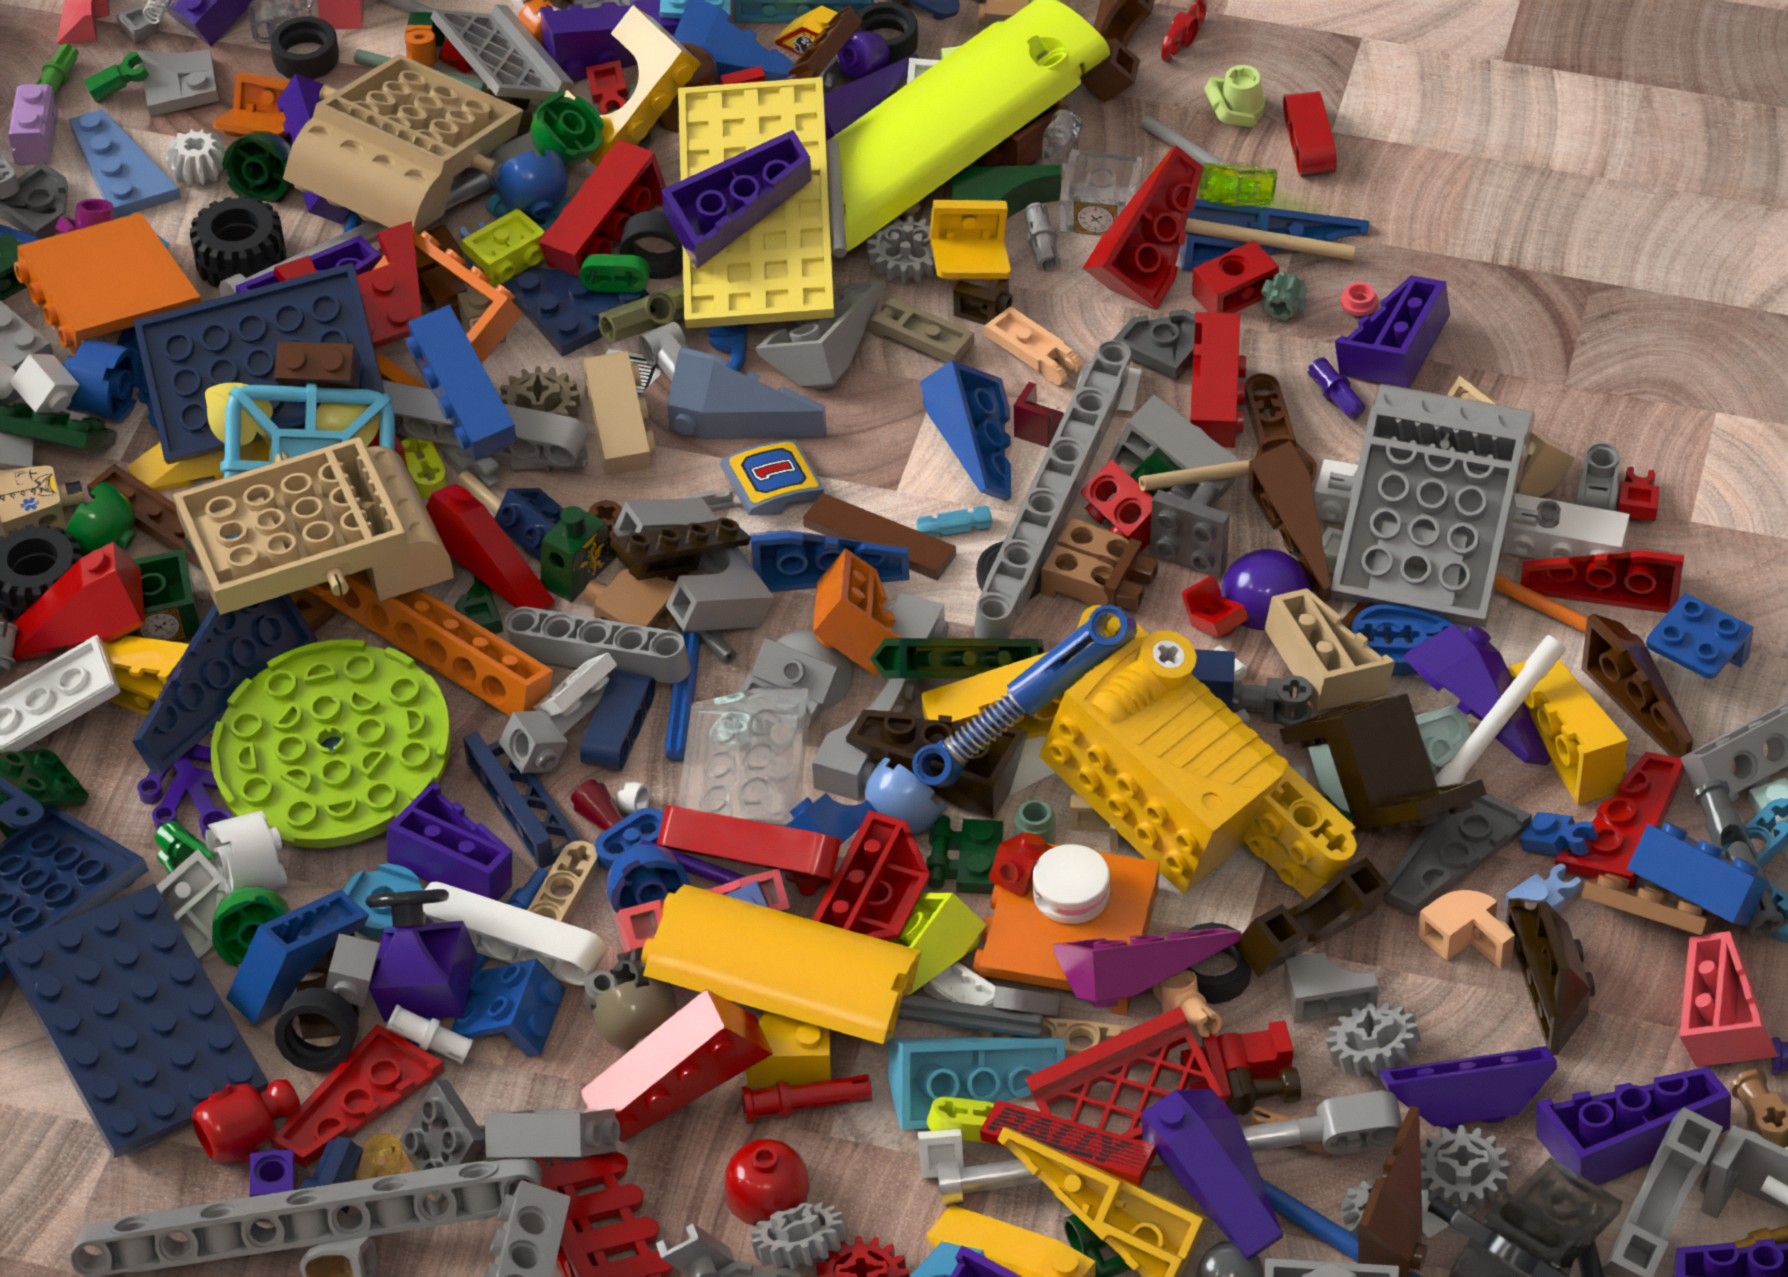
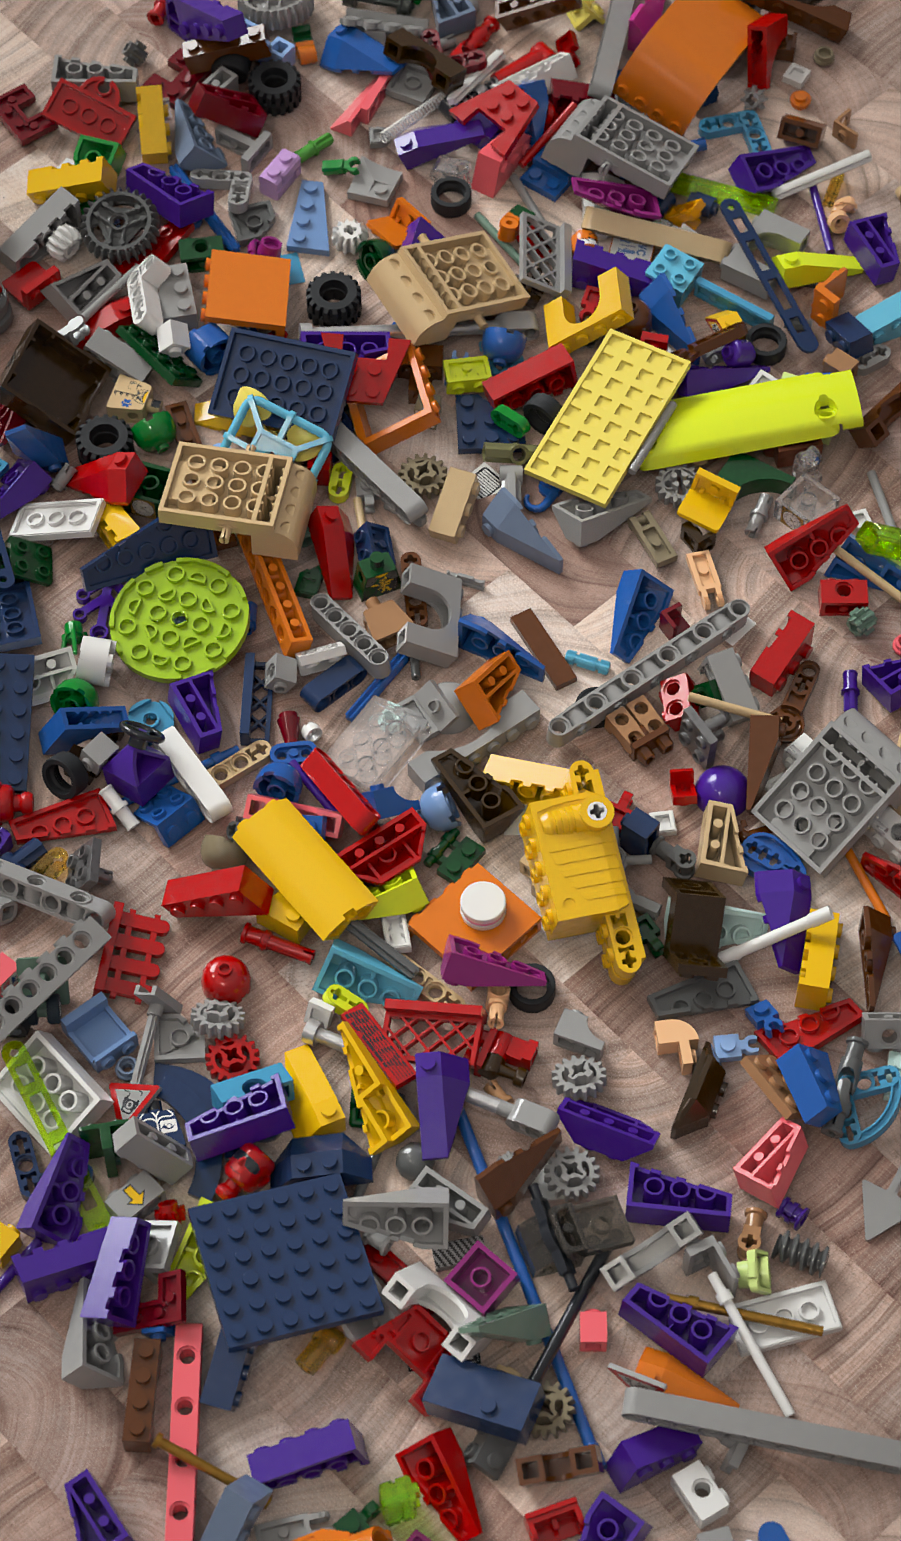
camera: 30 degrees right, 10 degrees up
(318, 363) = (304, 403): reddish brown brick -> none
(460, 383) = (372, 452): blue wedge -> none
(551, 1132) = (133, 896): light grey window -> none
(567, 128) = (540, 321): green cylinder -> none
(595, 984) = (217, 824): light grey pin -> none
(677, 548) = (422, 602): dark brown bracket -> none
(735, 195) = (591, 410): wedge -> none
(771, 476) = (511, 584): slope -> none
(949, 656) = (519, 743): dark green brick -> none
(1016, 862) = (465, 875): red bracket -> none
(1026, 1001) = (419, 956): light grey beam -> none
(1028, 693) = (521, 790): blue piece -> none
(1036, 818) = (495, 862): sand green brick -> none
(1161, 342) = (773, 611): dark grey plate -> none
(1334, 907) = (594, 995): dark brown arch -> none

